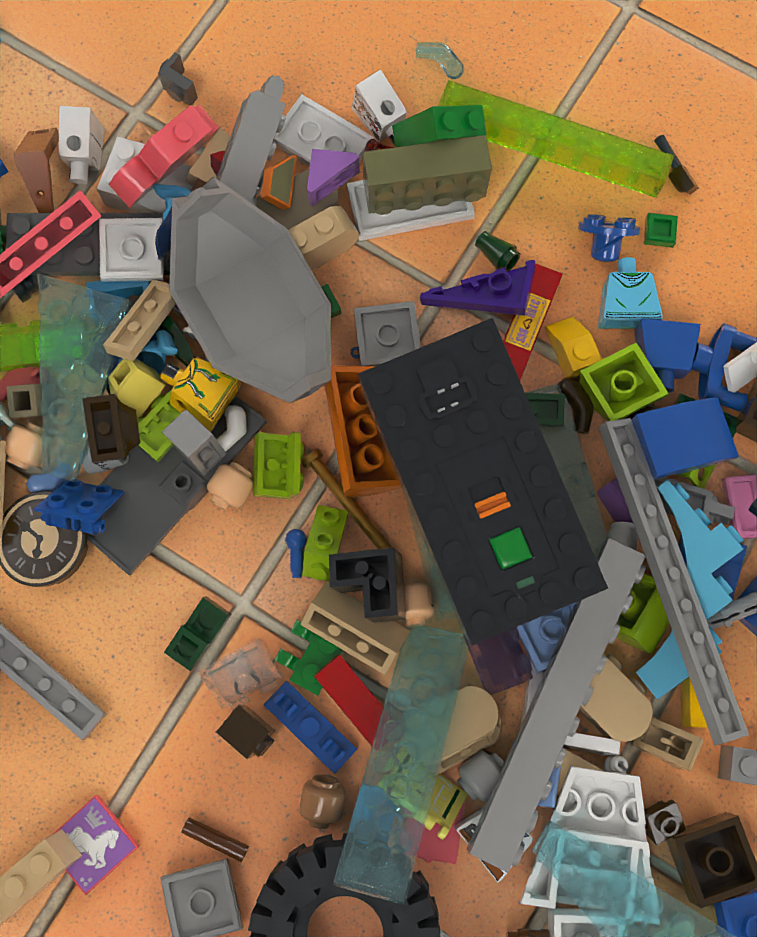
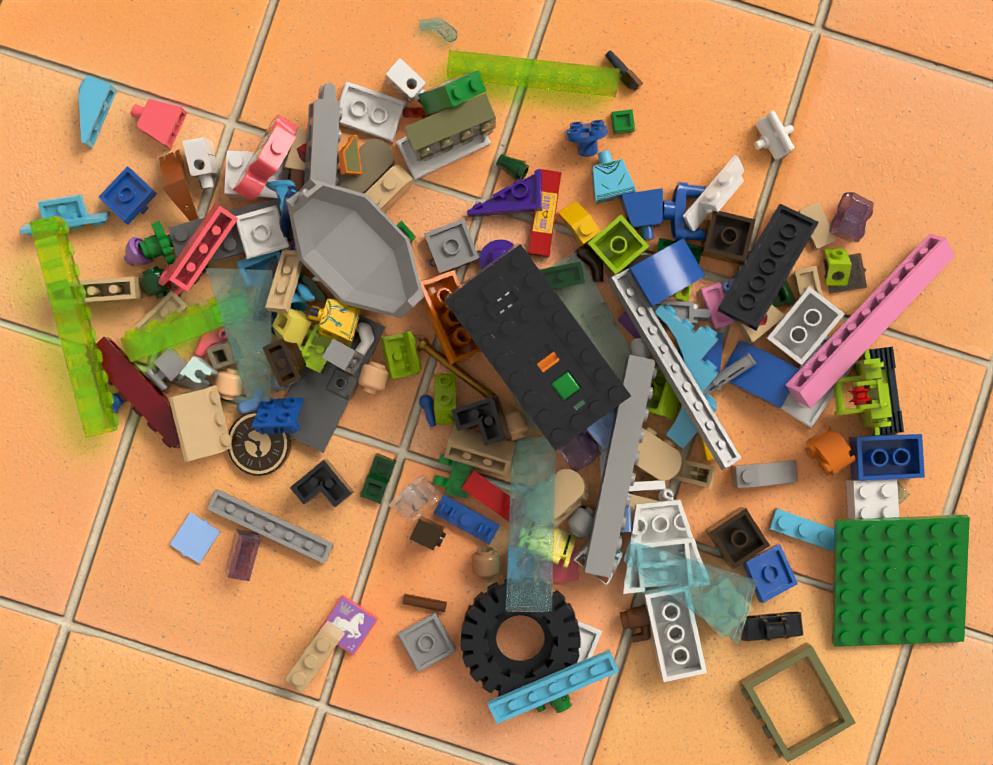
camera: 15 degrees left, 10 degrees up
(43, 85) = (160, 120): none -> coral torso
(113, 613) = (322, 479): none -> black brick
(175, 83) = (255, 97): dark grey bracket -> none
(329, 172) = (382, 142): medium lavender slope -> none
(663, 821) = (701, 523): dark brown bracket -> none

